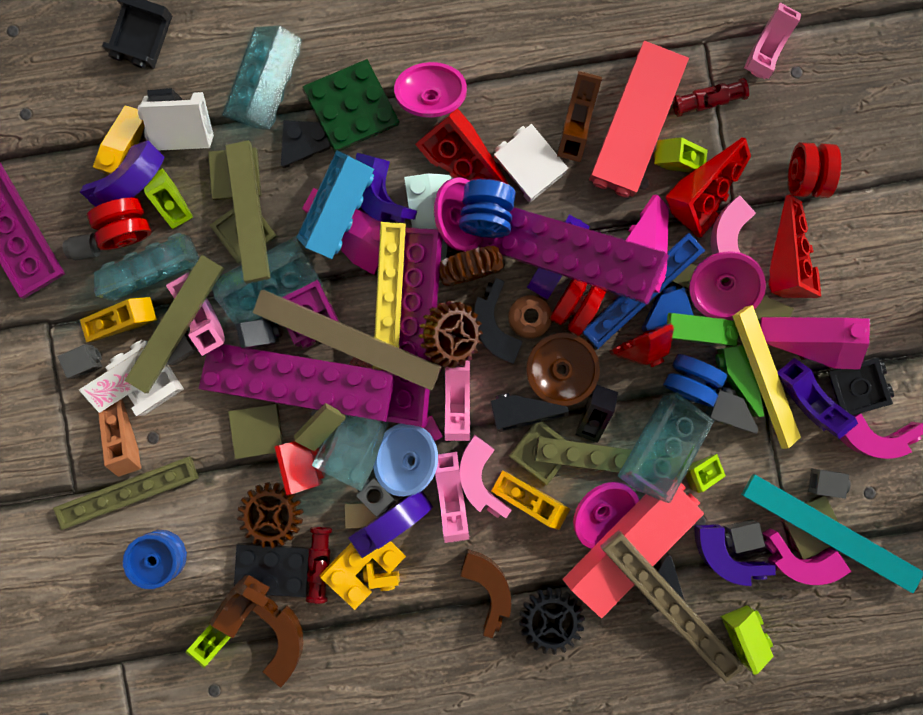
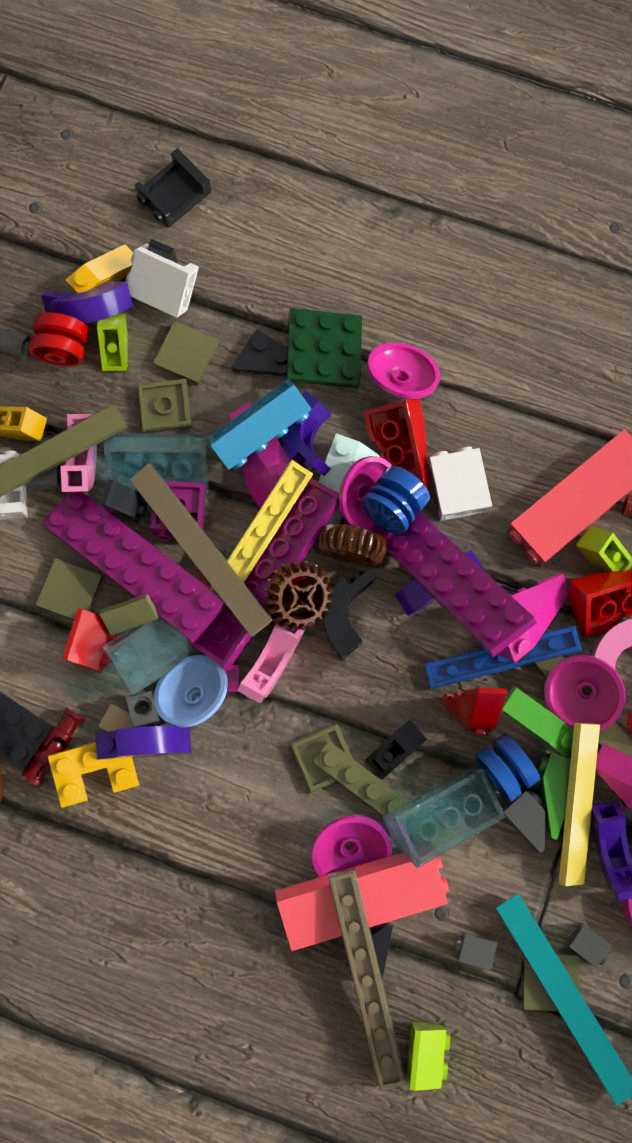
camera: 30 degrees right, 10 degrees down
(145, 268) = (58, 390): clear light blue slope -> none
(247, 212) = (177, 390): olive tile -> none
(263, 77) = (260, 283): clear light blue slope -> none
(277, 523) = (25, 676): reddish brown gear -> none
(380, 580) = (105, 797): yellow bracket -> none
(451, 498) = (214, 750): bright pink arch -> none
(471, 467) = (245, 738): bright pink arch -> none
(488, 573) = (208, 850): reddish brown arch -> none
(517, 320) = (376, 636): nougat piece -> none
(519, 411) = (323, 706): black slope -> none
(531, 500) = (287, 798): yellow slope -> none
(544, 627) = (220, 932): black gear -> none
(578, 116) = (527, 465): reddish brown arch -> none
(579, 305) = (434, 637): red wheel -> none
(580, 365) = (388, 669): reddish brown dish -> none
(670, 302) = (526, 680): blue slope -> none
(704, 473) = (470, 865): lime slope -> none
(712, 549) = (437, 955): dark purple arch -> none
(818, 570) = (533, 1028): dark pink arch -> none

